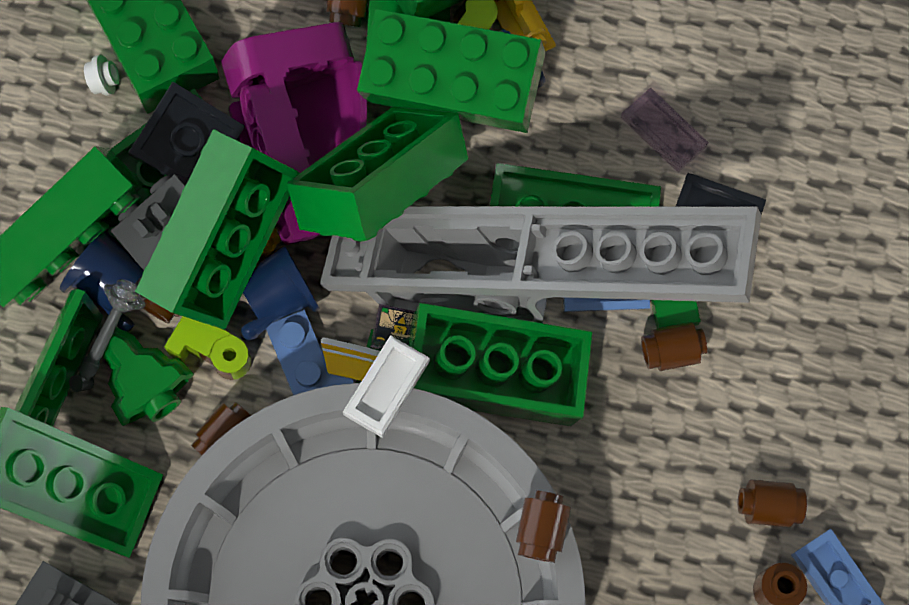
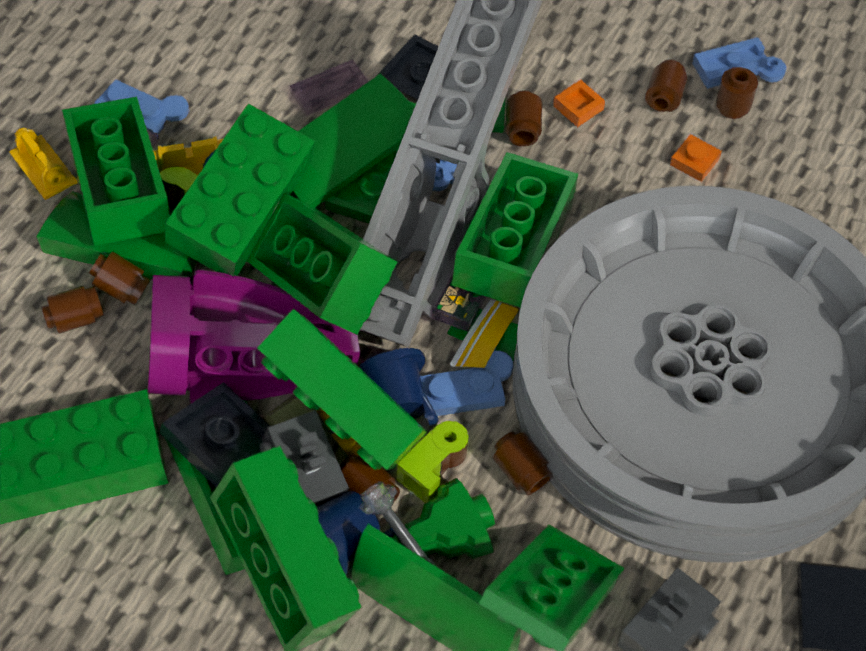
camera: 75 degrees left, 15 degrees down
(101, 75) = (116, 509): white plate -> none
(386, 386) = (530, 286): white tile -> none
(543, 526) = (680, 195): reddish brown brick -> none
(573, 160) = (353, 138): none -> green slope
(677, 556) = (695, 157): none -> orange plate
(716, 405) = (579, 103): none -> orange plate

